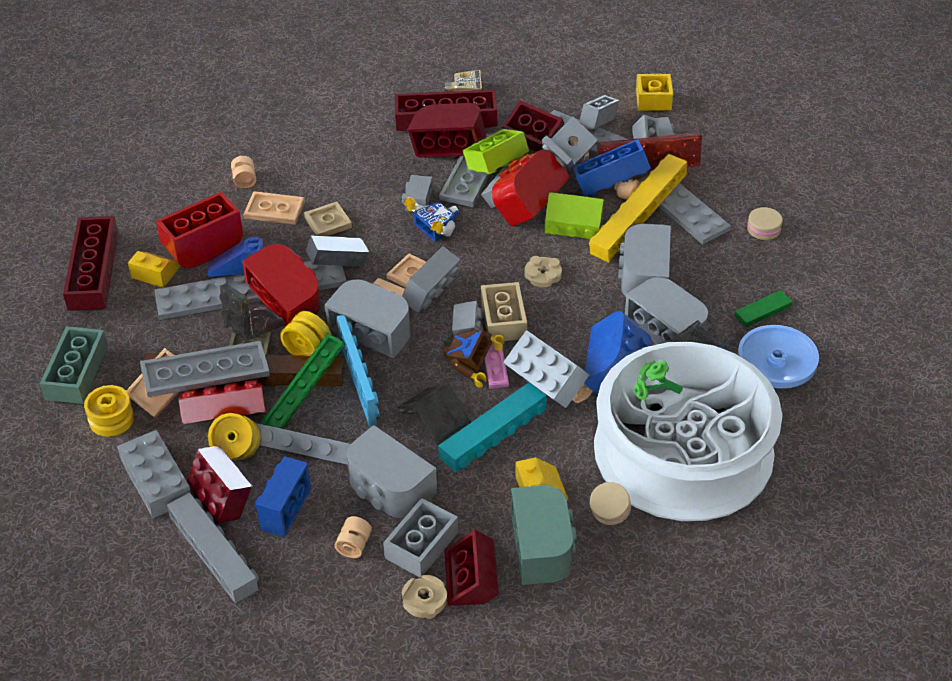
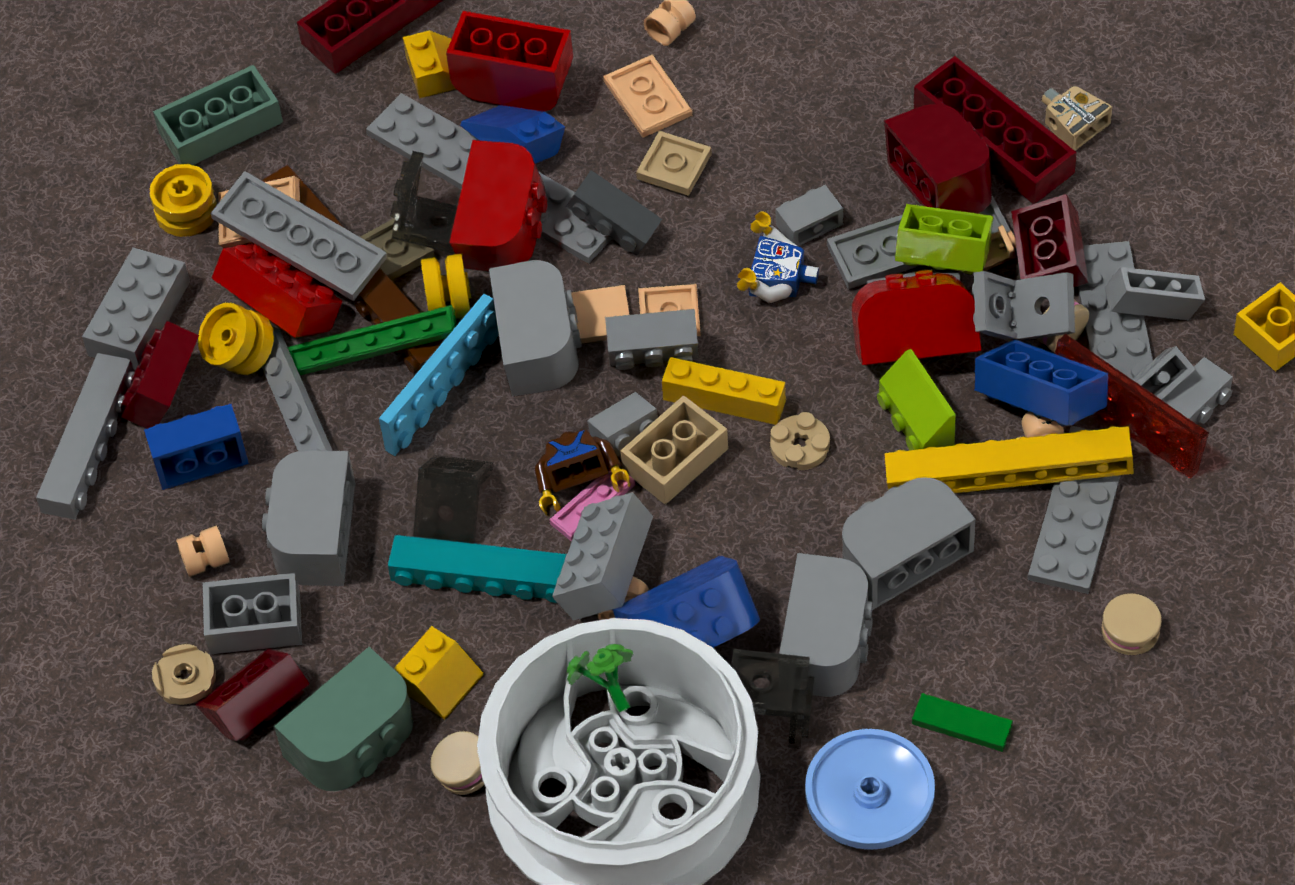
camera: 55 degrees right, 10 degrees up
(495, 271) = (724, 390): none -> yellow brick

